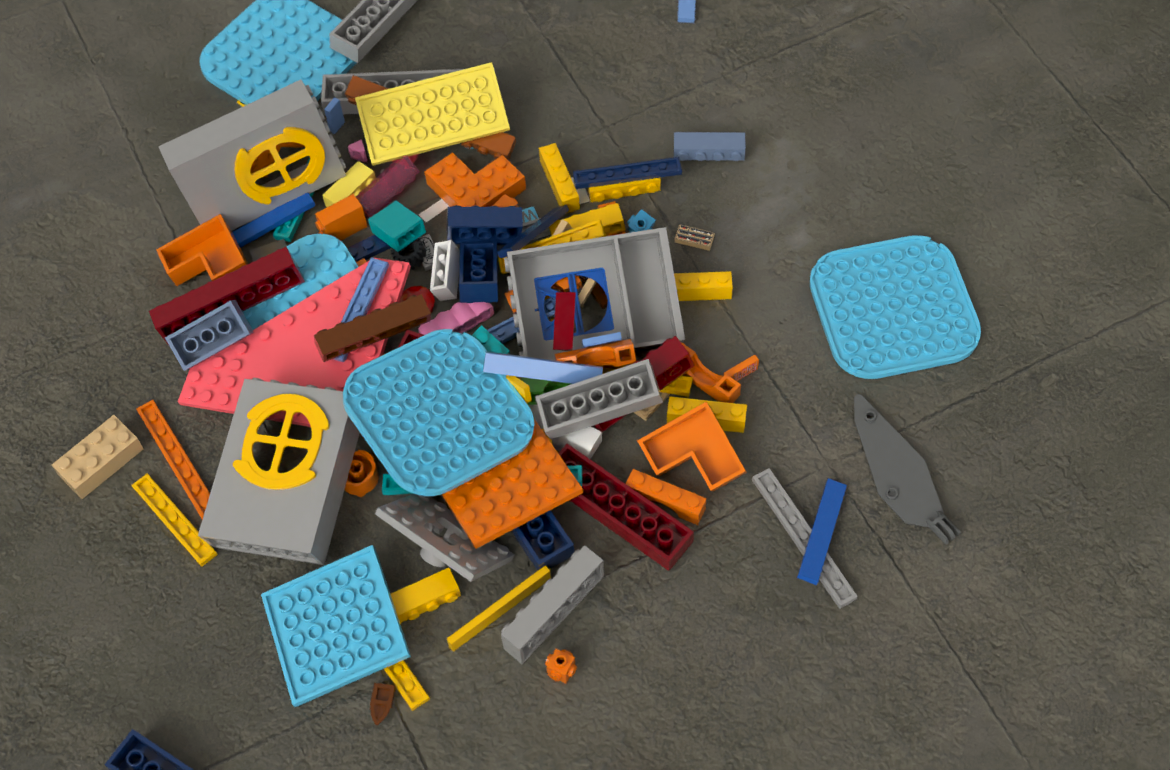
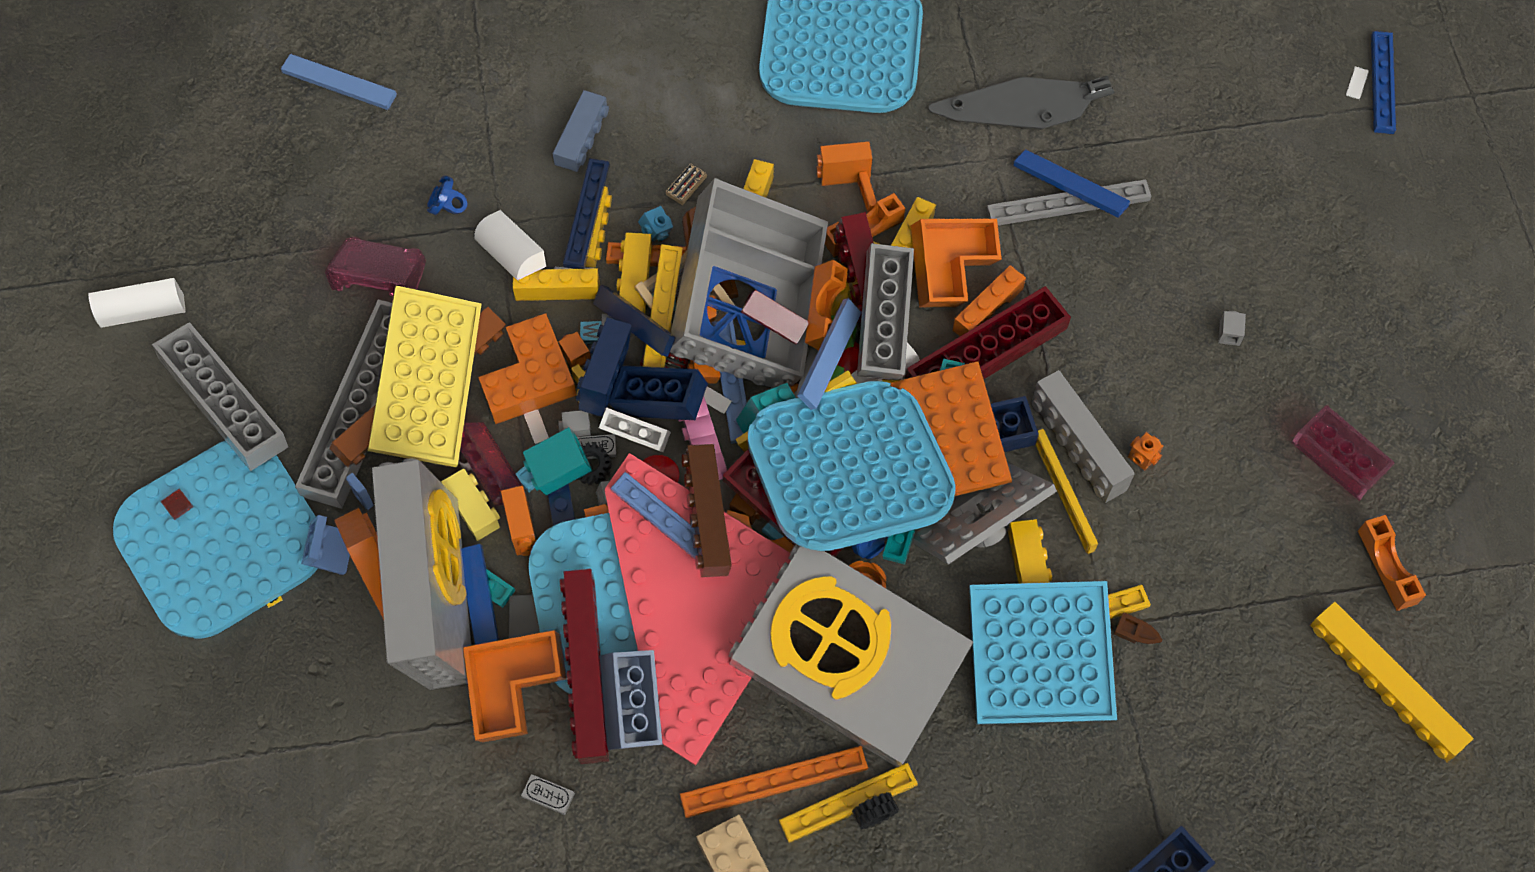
camera: 75 degrees left, 5 degrees up
(134, 315) = (548, 794): none -> light grey tile
(164, 535) = (875, 810): none -> black tyre
(293, 18) = (177, 504): none -> clear red tile
(437, 229) = (577, 421): none -> light grey brick
(496, 318) = (716, 400): none -> white sticker
(527, 62) = (374, 266): none -> clear pink windscreen
(577, 134) = (509, 245): none -> white brick
(599, 340) = (807, 292): medium blue tile -> none
(607, 78) = (442, 198): none -> blue tile
(723, 714) = (1232, 328): none -> light grey brick
(759, 340) = (843, 163): none -> orange brick

